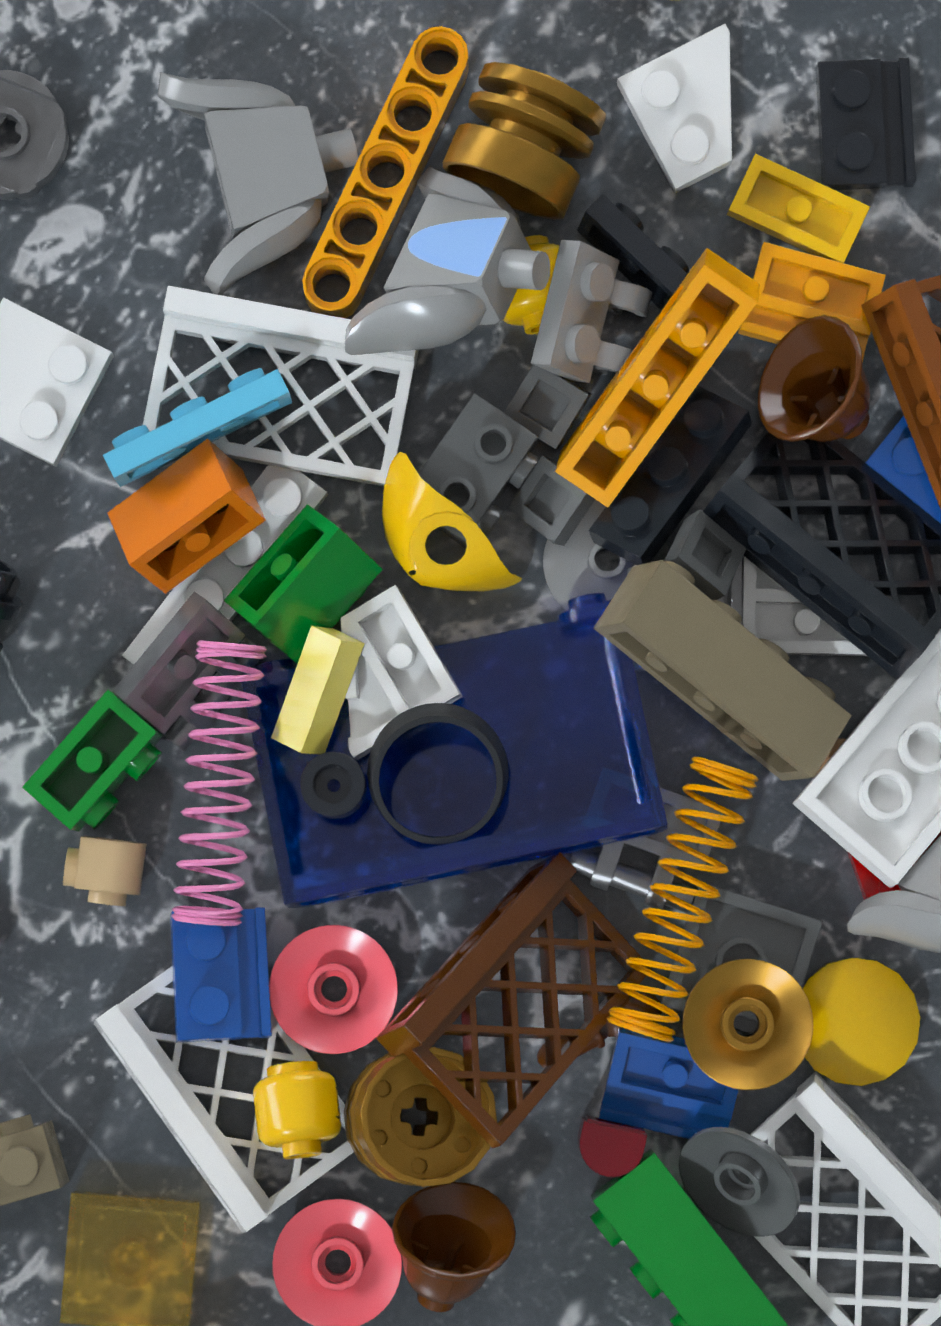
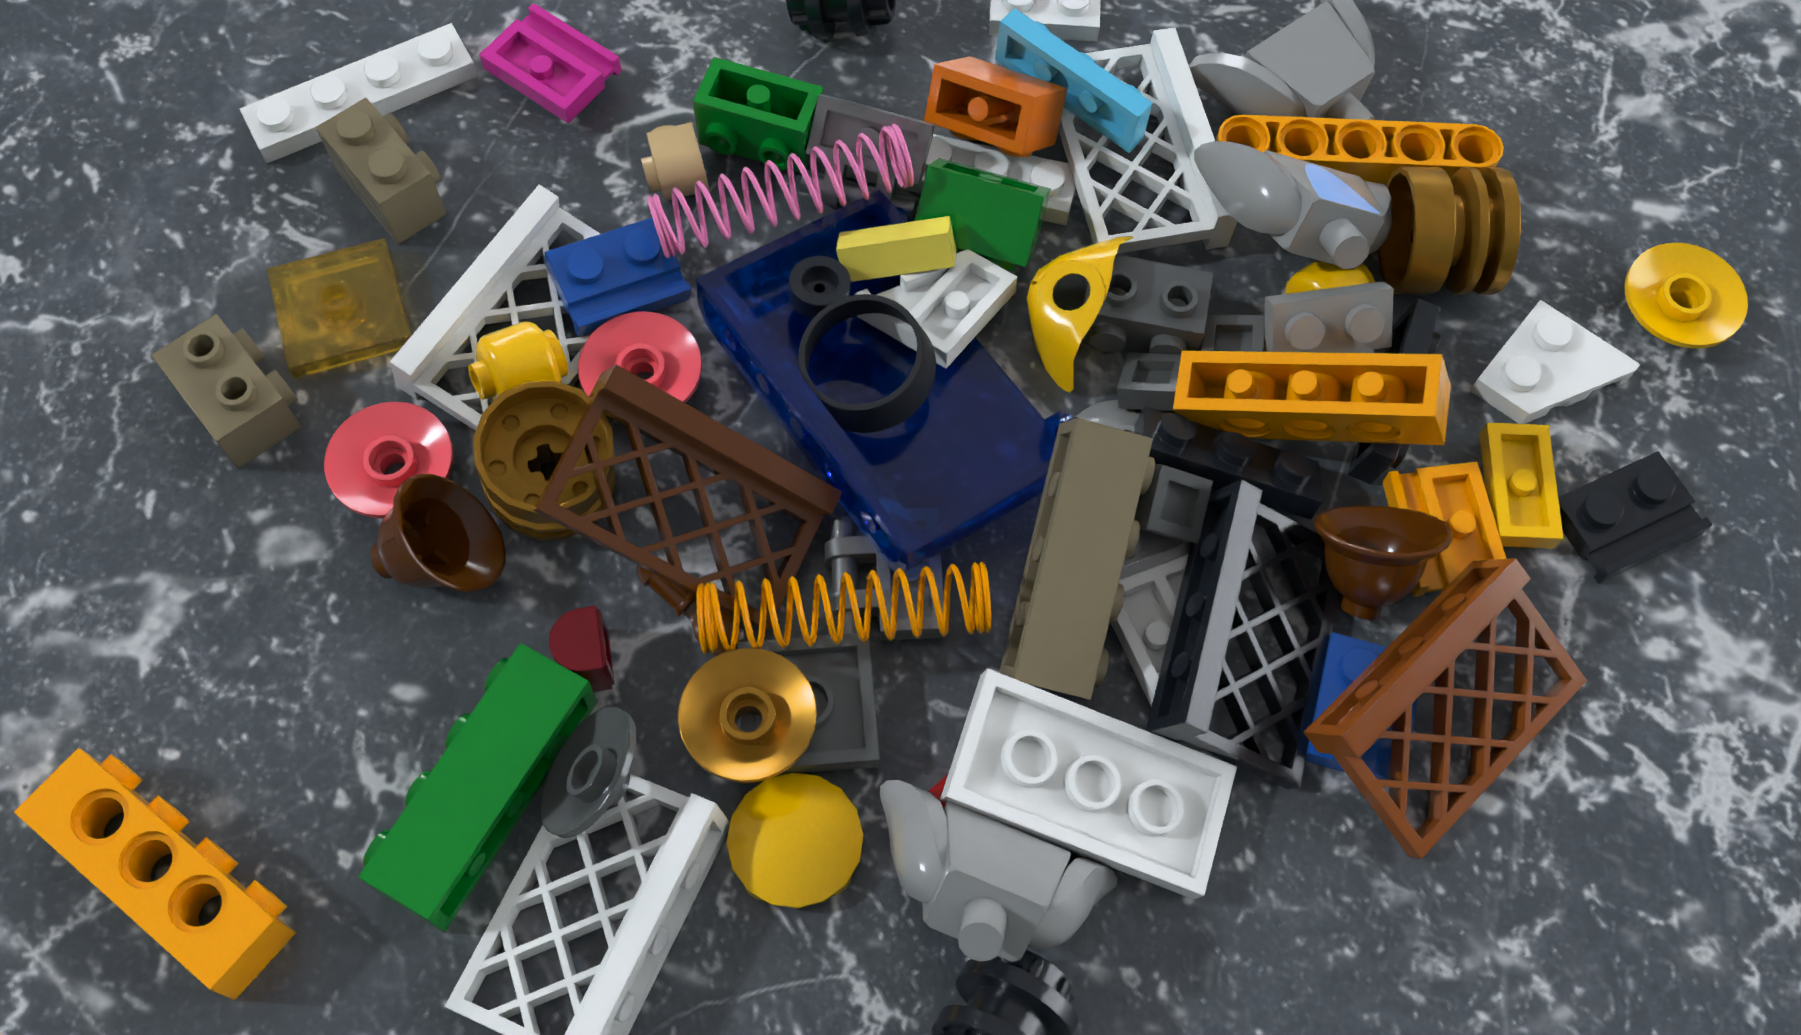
camera: 65 degrees right, 20 degrees down
(662, 1088) = (650, 676): blue plate -> none

